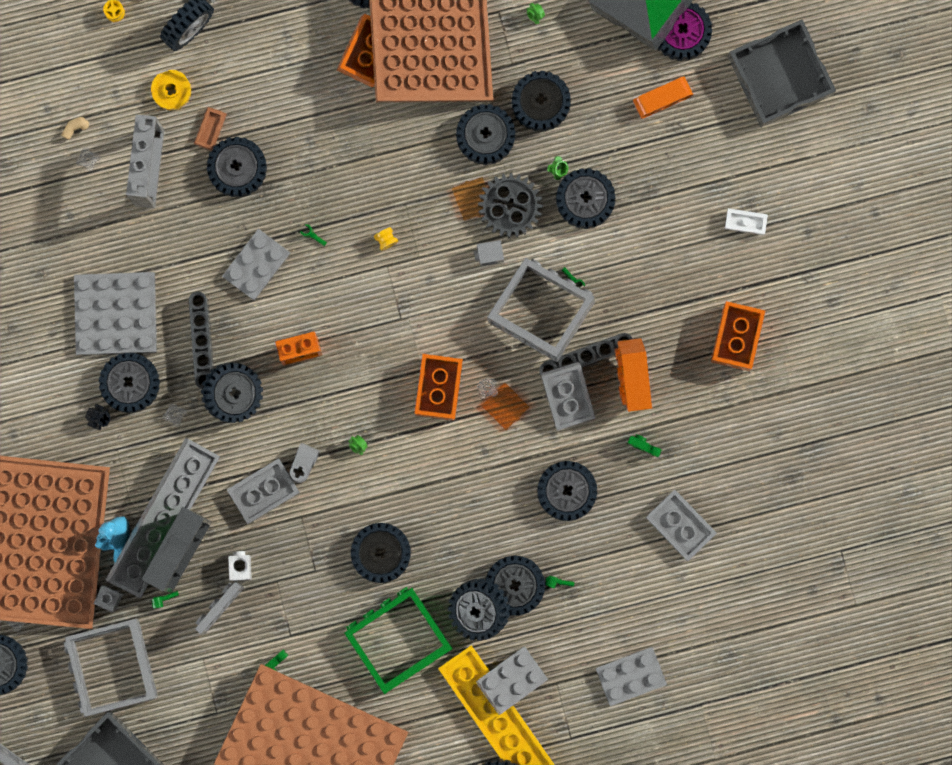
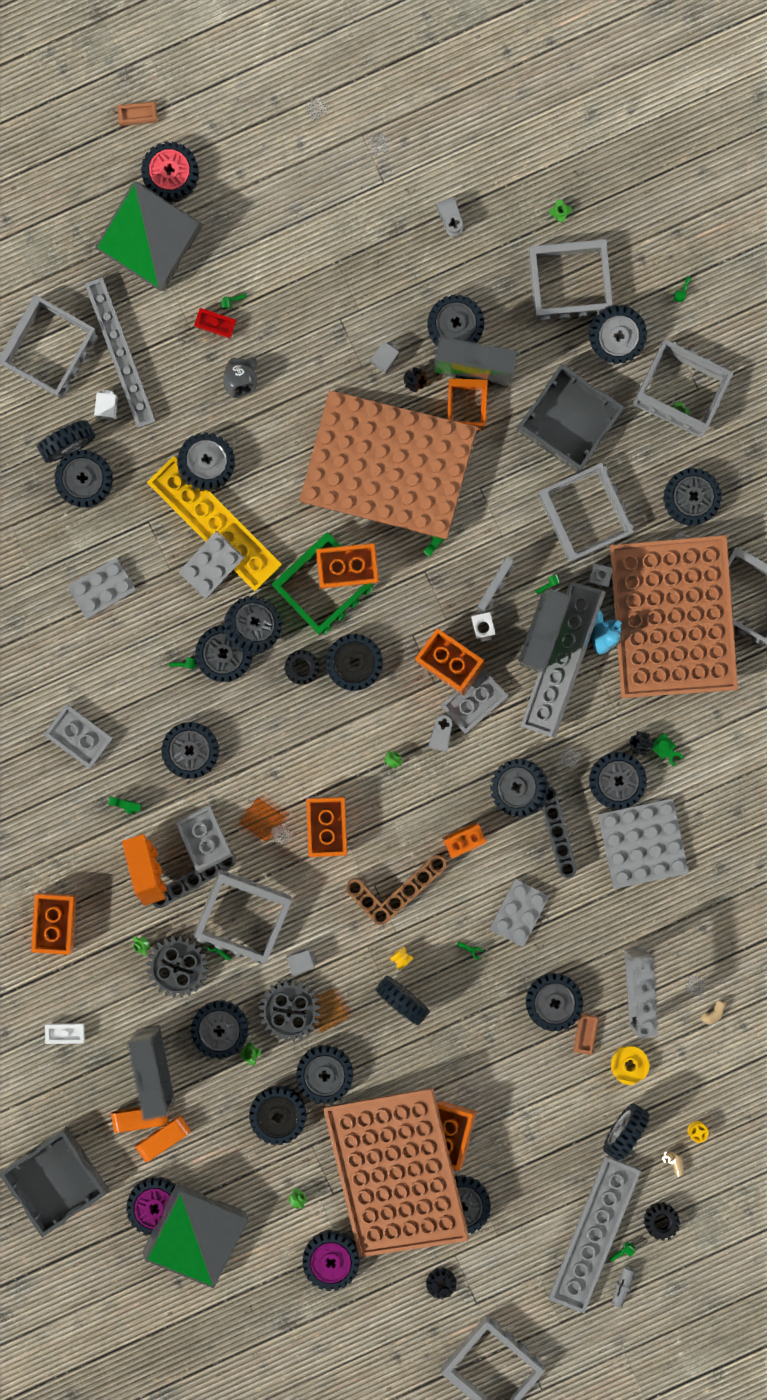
camera: 170 degrees right, 5 degrees up
(75, 408) = (664, 747): none -> green plate
(280, 535) = (450, 661): none -> orange brick
(368, 653) = (347, 566): none -> orange brick
(376, 306) = (397, 893): none -> medium nougat beam
(391, 195) = (402, 1000): none -> black wheel
(432, 569) = (313, 667): none -> black tyre
(627, 255) = (171, 982): none -> dark grey gear
(652, 298) = (141, 945): none -> bright green plate
(660, 166) = (151, 1072): none -> dark grey tile
(683, 122) = (132, 1119): none -> orange beam

